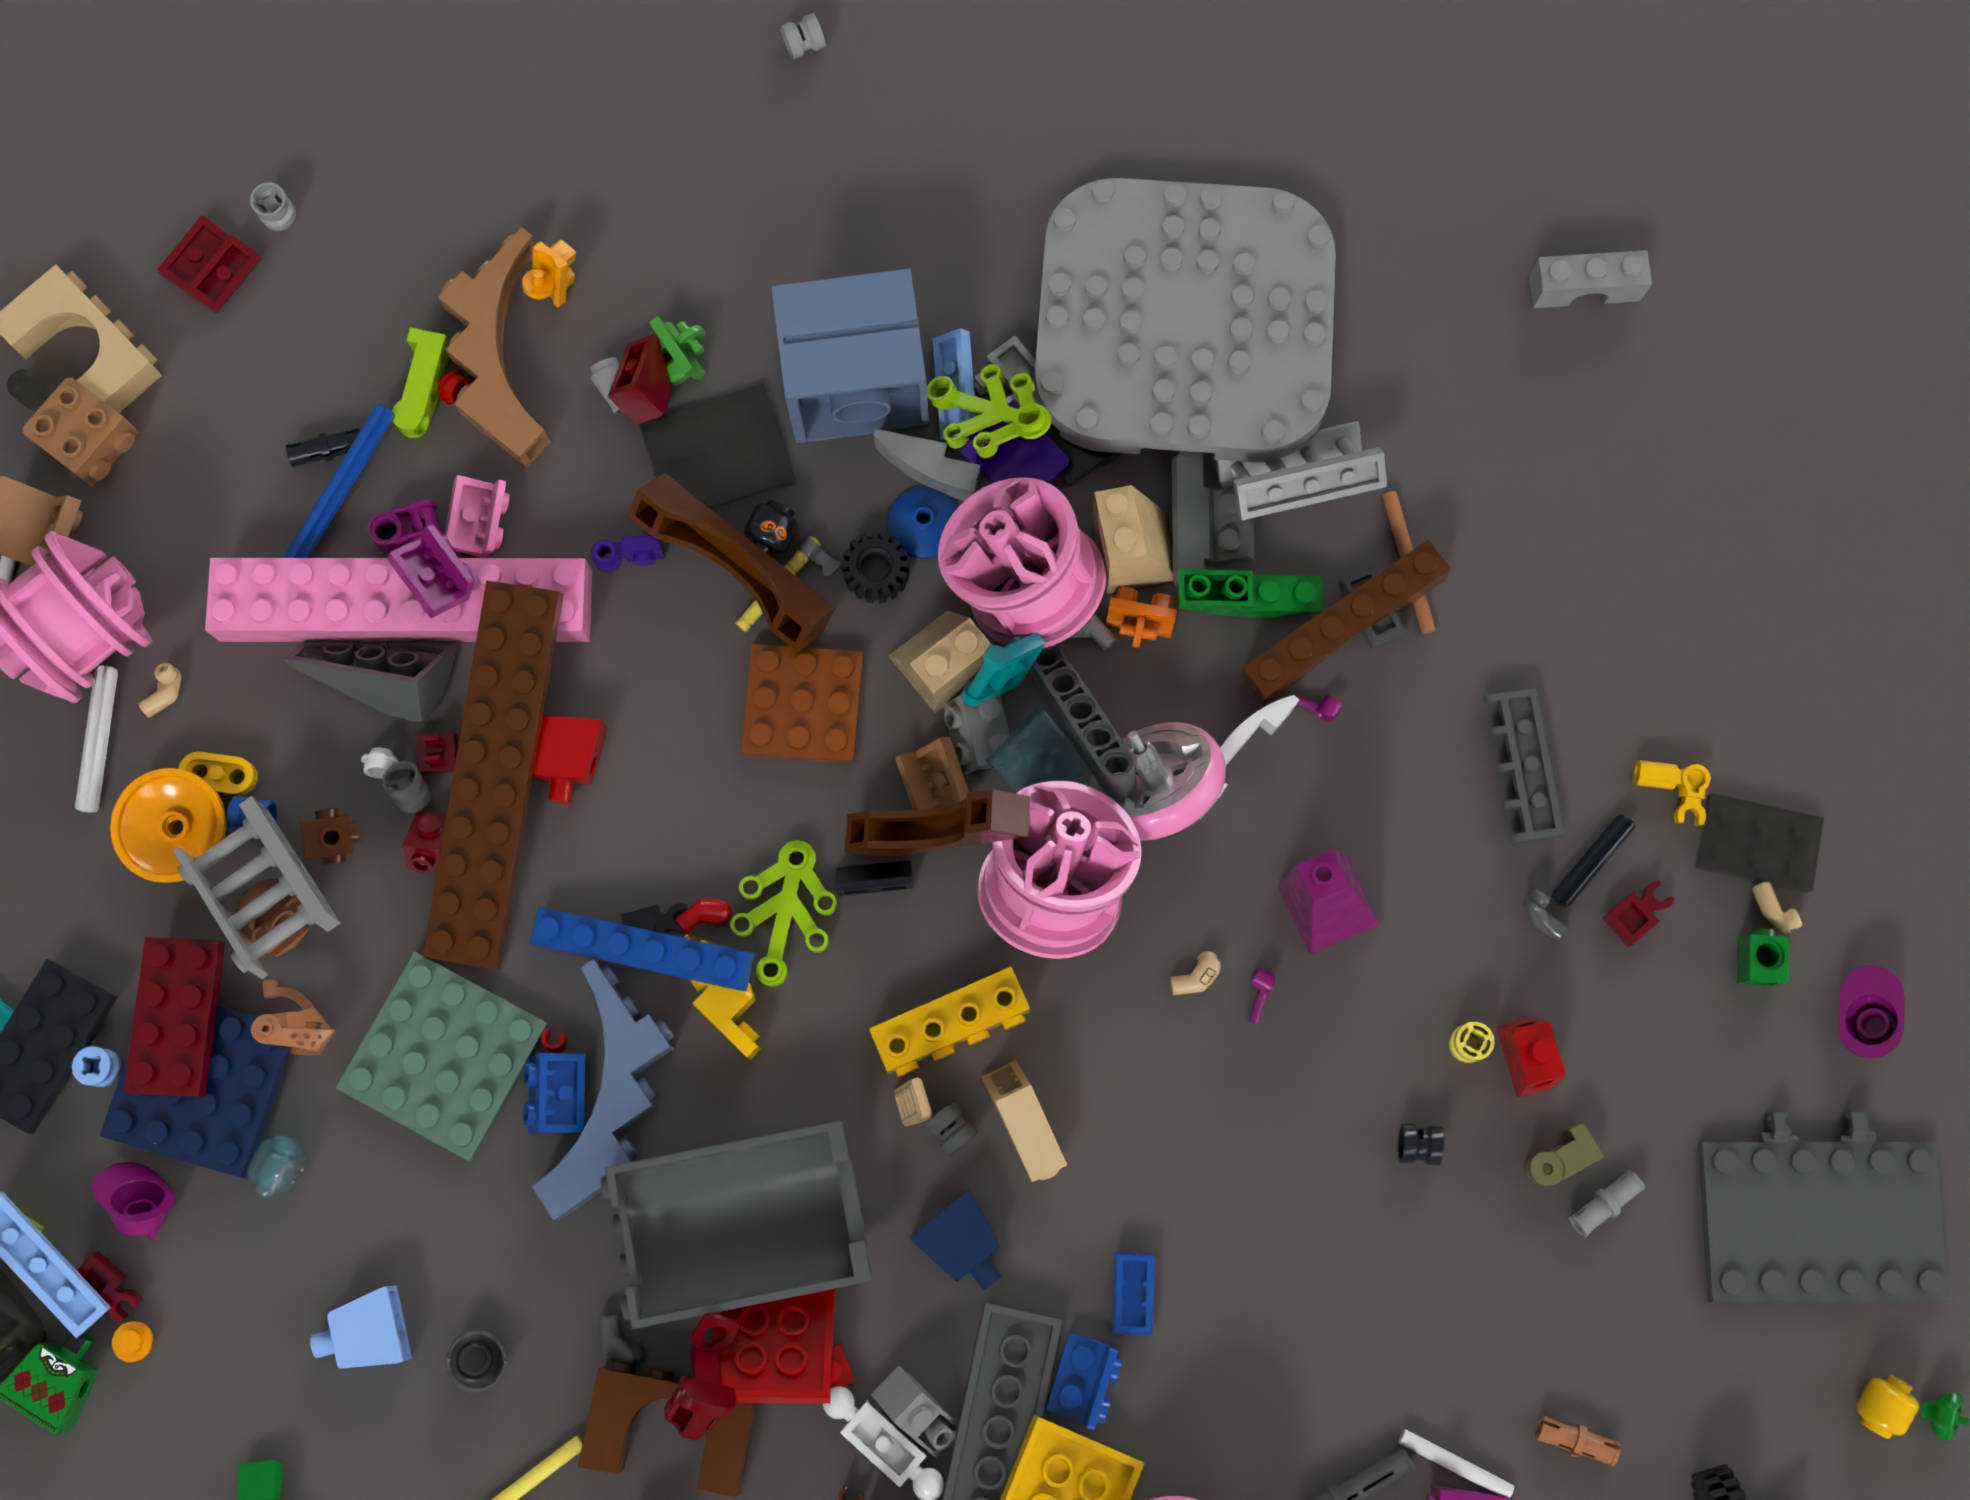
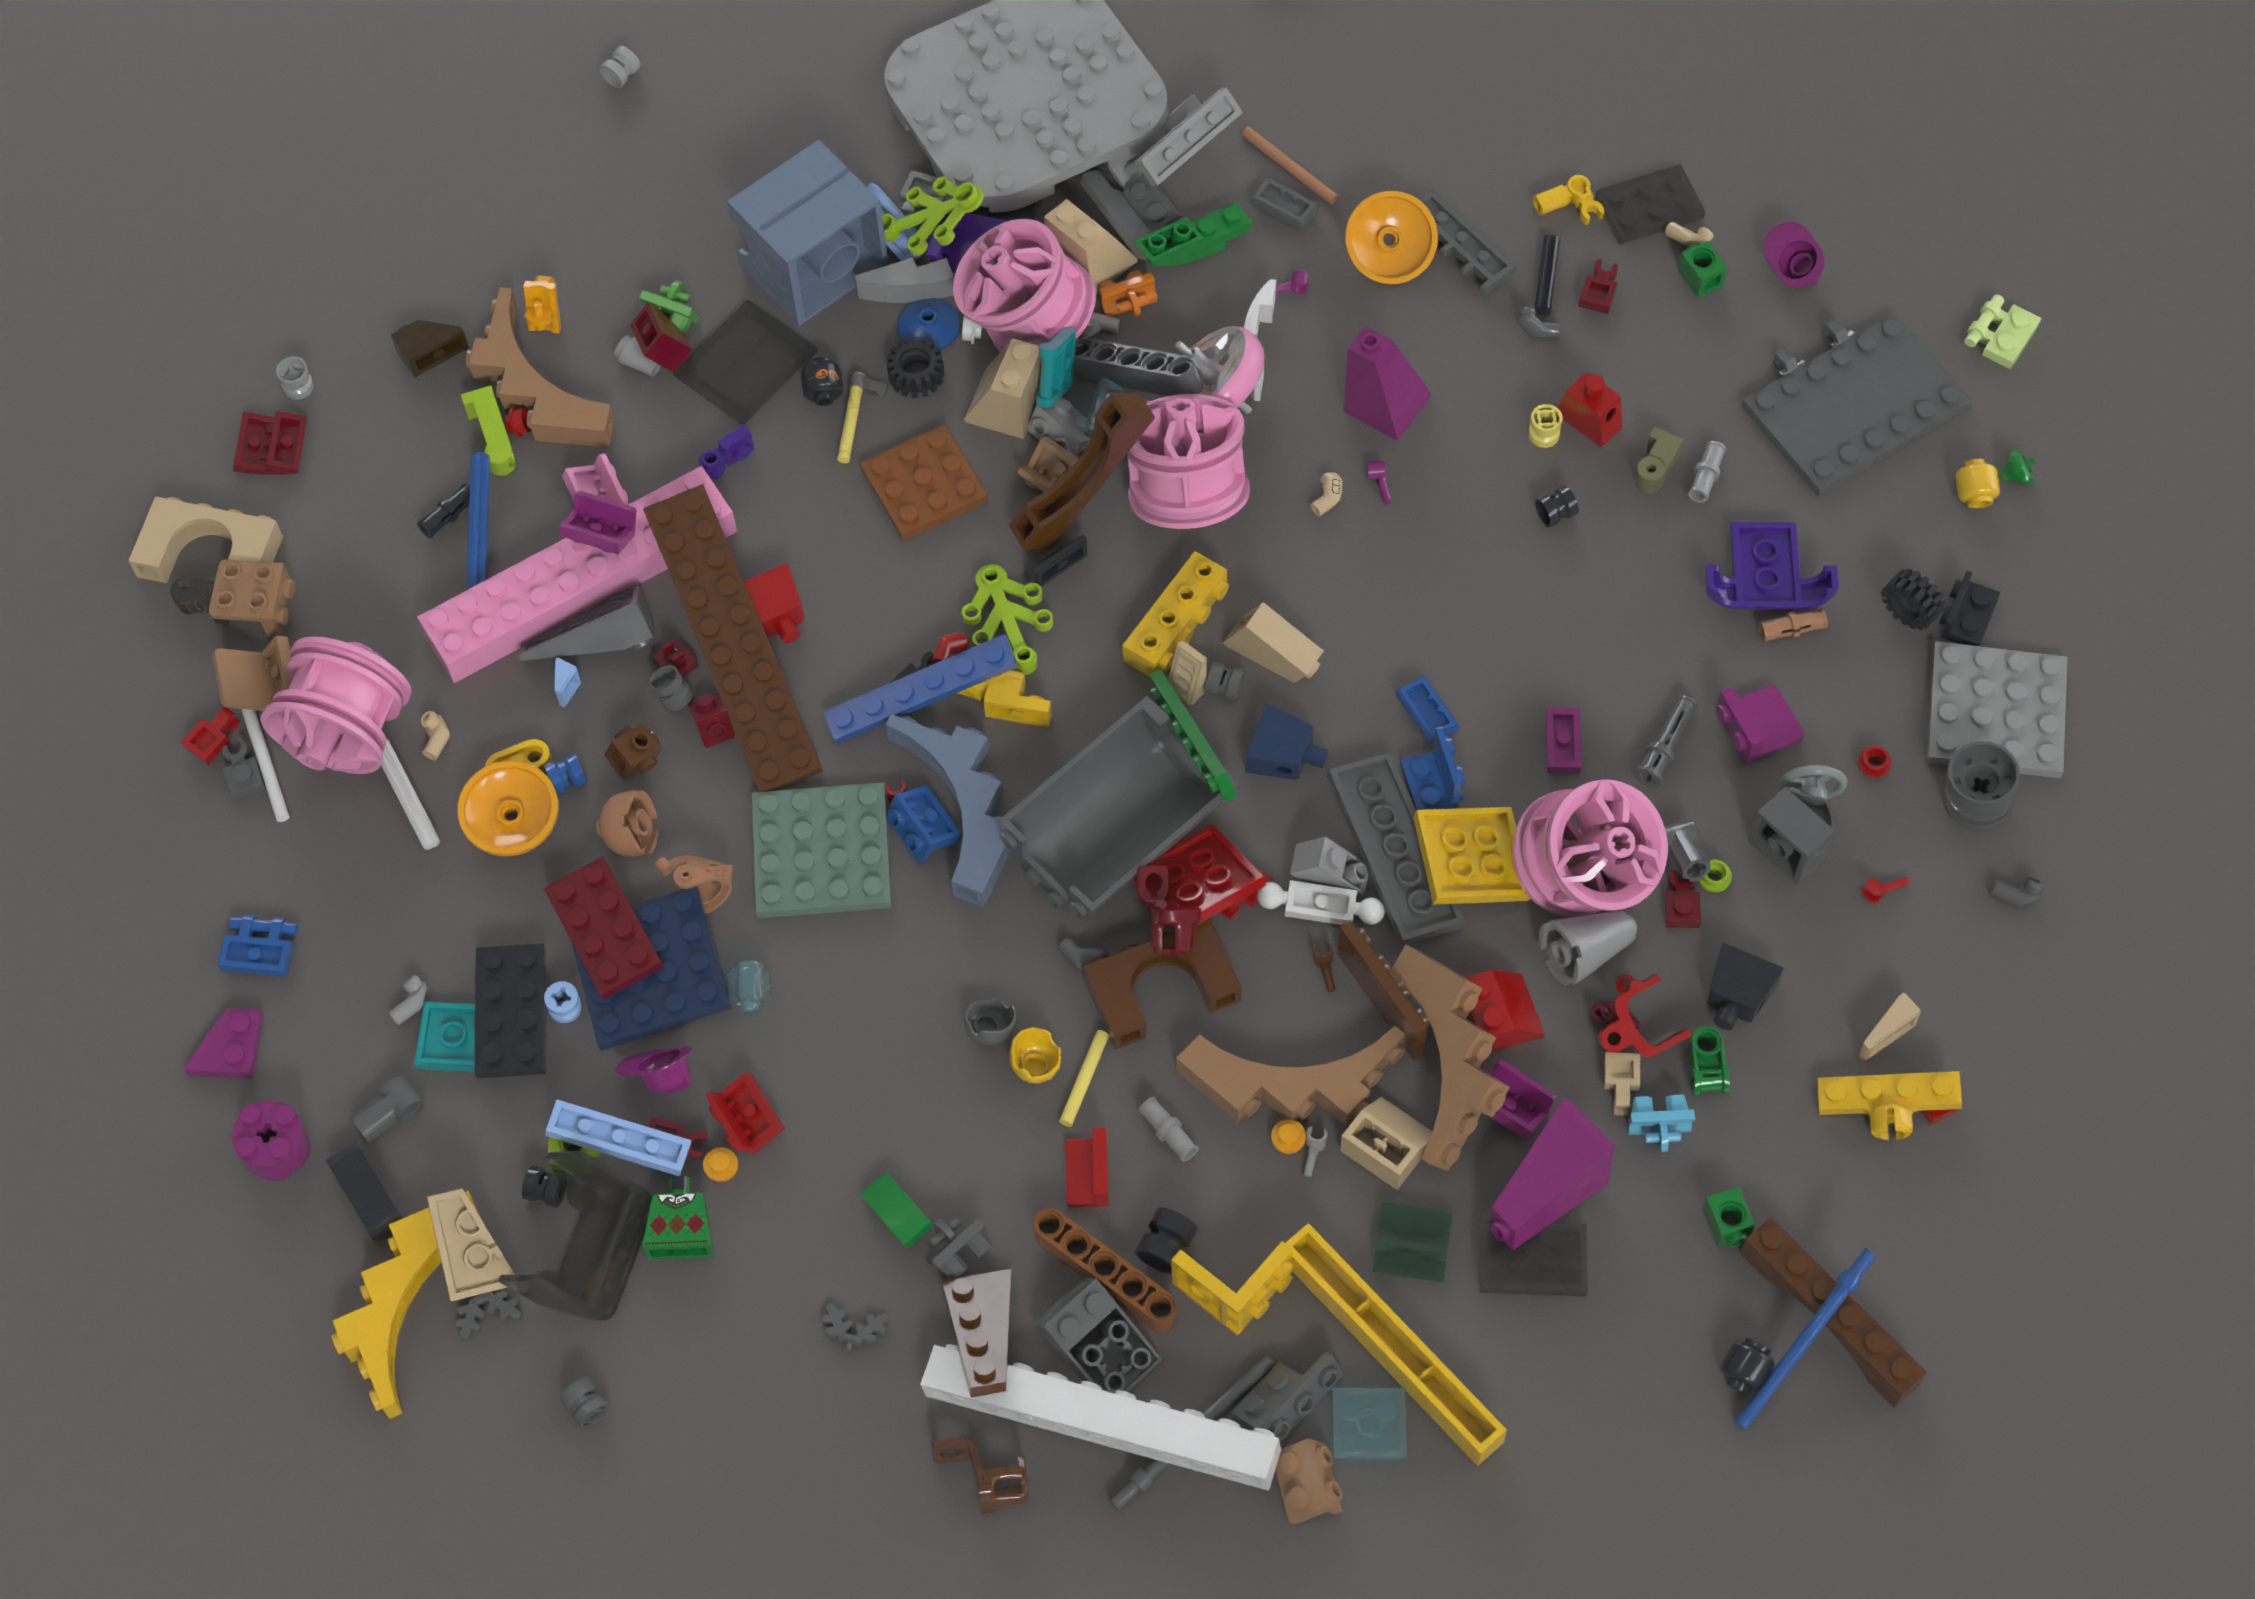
camera: 30 degrees left, 15 degrees down
(183, 1306) = (745, 1114): none -> red bracket
(294, 881) = (608, 764): light grey fence -> none
(314, 712) = (566, 681): none -> light blue slope
(365, 1332) = (894, 1052): light blue torso -> none
(378, 762) = (637, 689): white plate -> none
(407, 521) = (544, 524): magenta piece -> none
(417, 247) = (428, 344): none -> dark brown slope
(493, 1431) = (1034, 1055): none -> yellow hair
(677, 516) = (861, 413): reddish brown arch -> none
(855, 1206) = (1193, 741): none -> green plate
(1248, 1419) = (1563, 740): none -> magenta plate
(1343, 621) = (1288, 183): reddish brown arch -> none
(1455, 1464) = (1714, 689): white bar -> none
(1457, 746) = (1409, 225): none -> light orange dish
(1592, 1366) = (1768, 571): none -> dark purple piece

